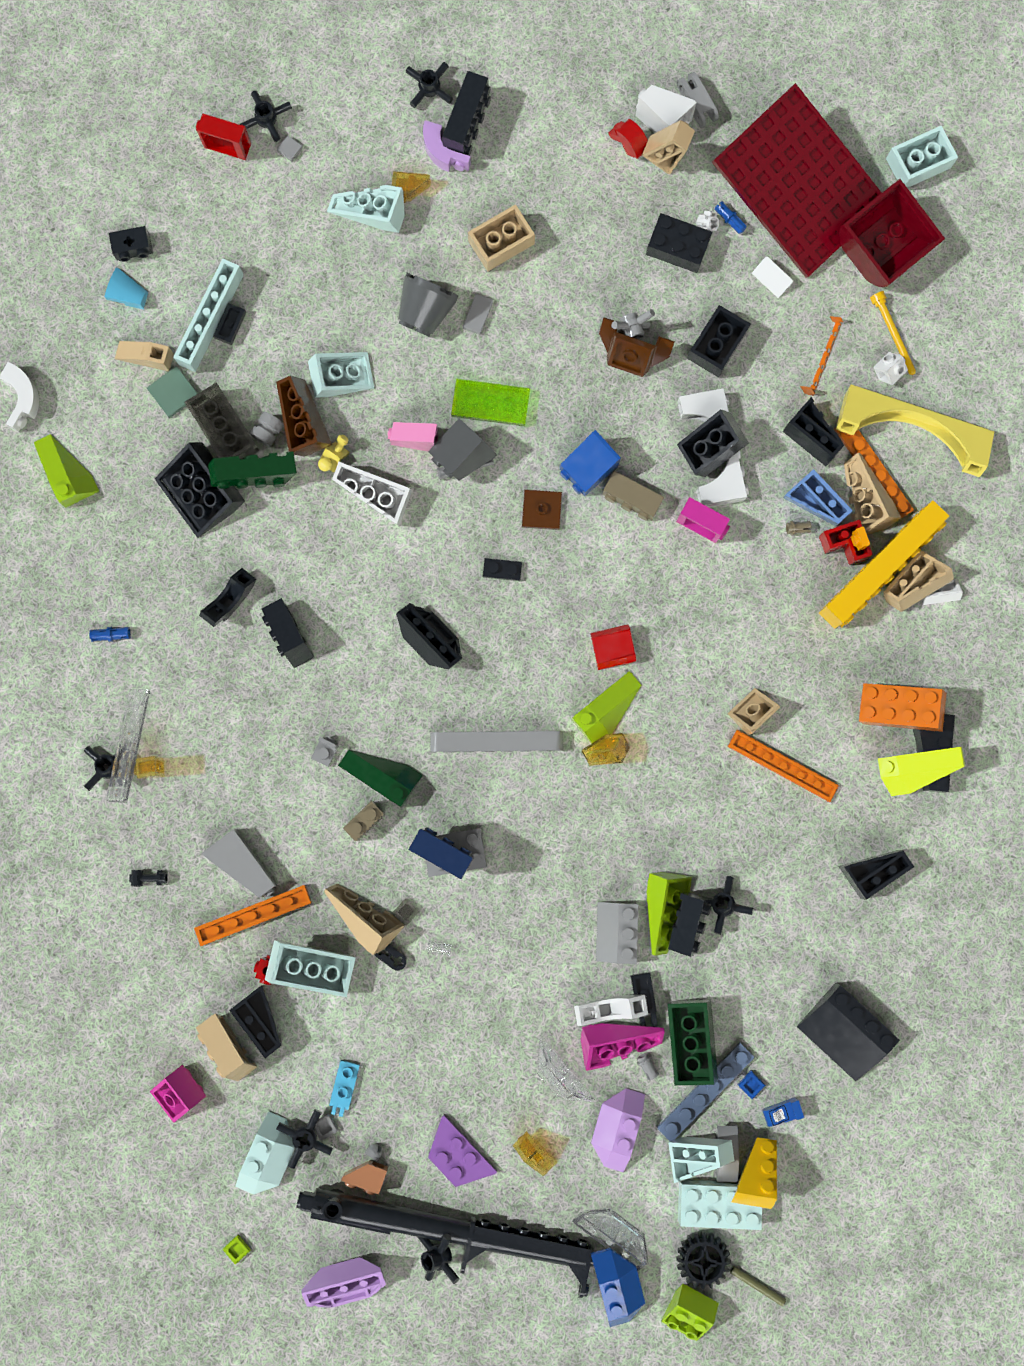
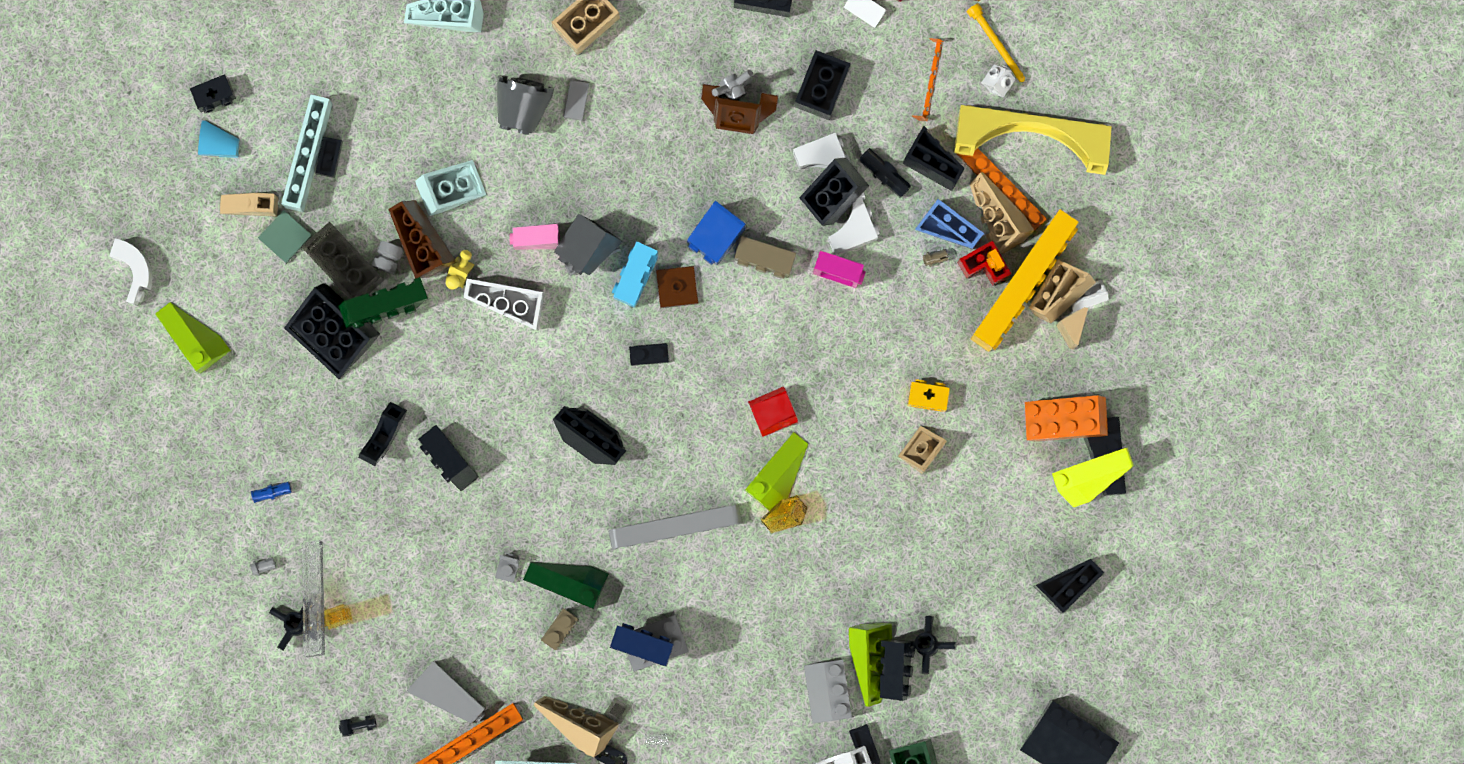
camera: 10 degrees left, 0 degrees up
(87, 704) = (262, 566): none -> light grey pin
(490, 402) = (606, 188): clear neon green plate -> none
(504, 488) = (635, 274): none -> medium azure wedge
(758, 662) = (936, 403): none -> yellow brick
(764, 436) = (884, 172): none -> black piece
(783, 766) = (961, 497): orange tile -> none
(923, 619) = (1072, 327): none -> tan slope

